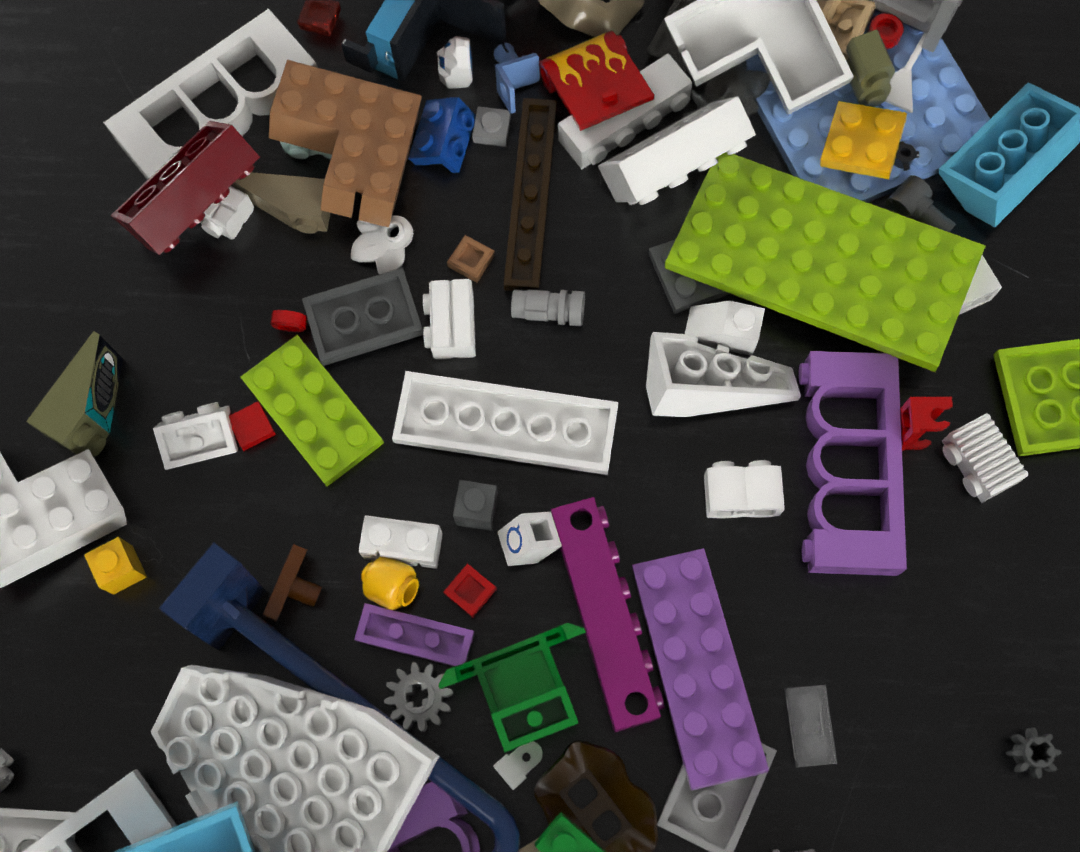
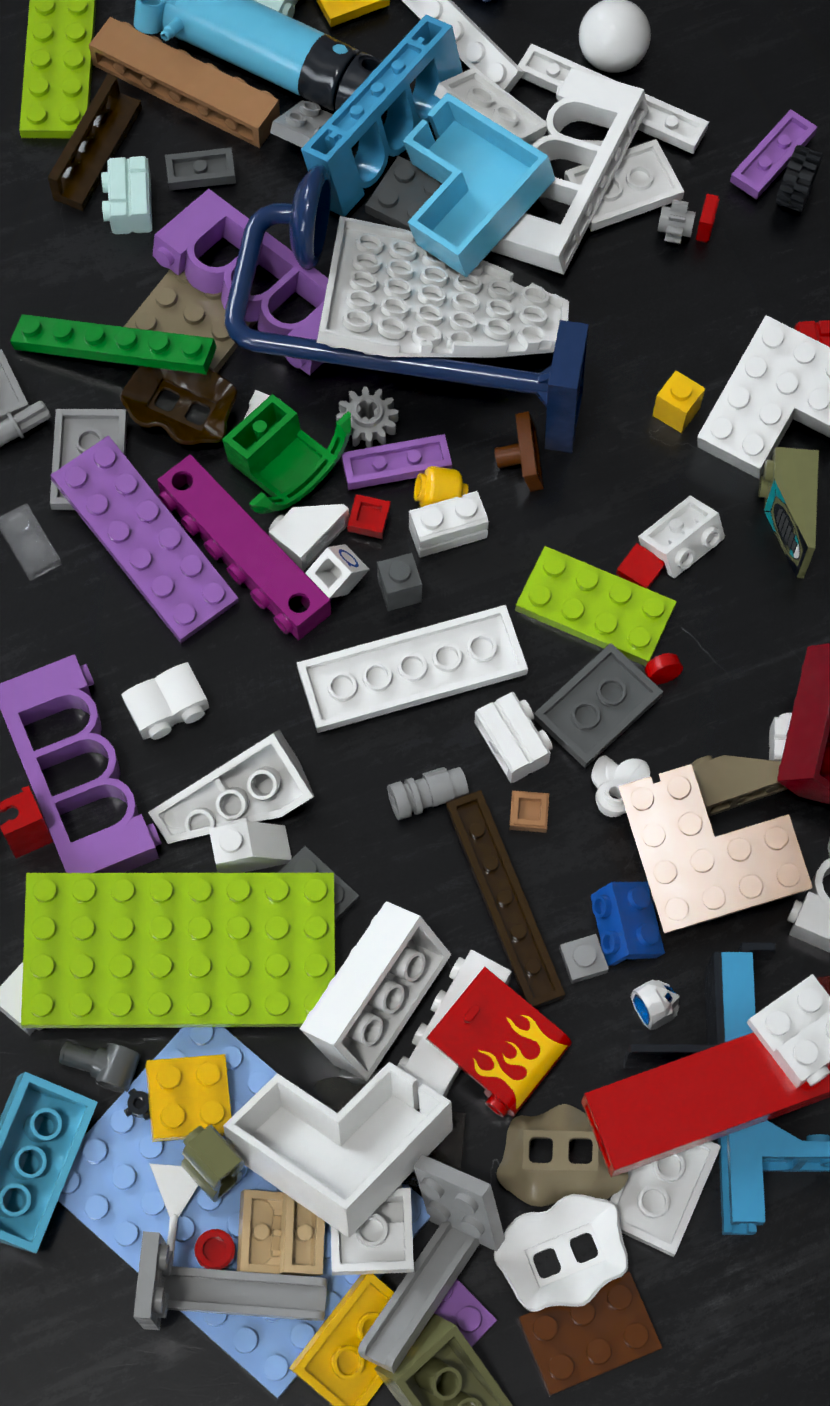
camera: 150 degrees right, 5 degrees down
(514, 73) = (591, 1021): medium blue bracket -> none
(538, 599) = (308, 531): none -> white slope

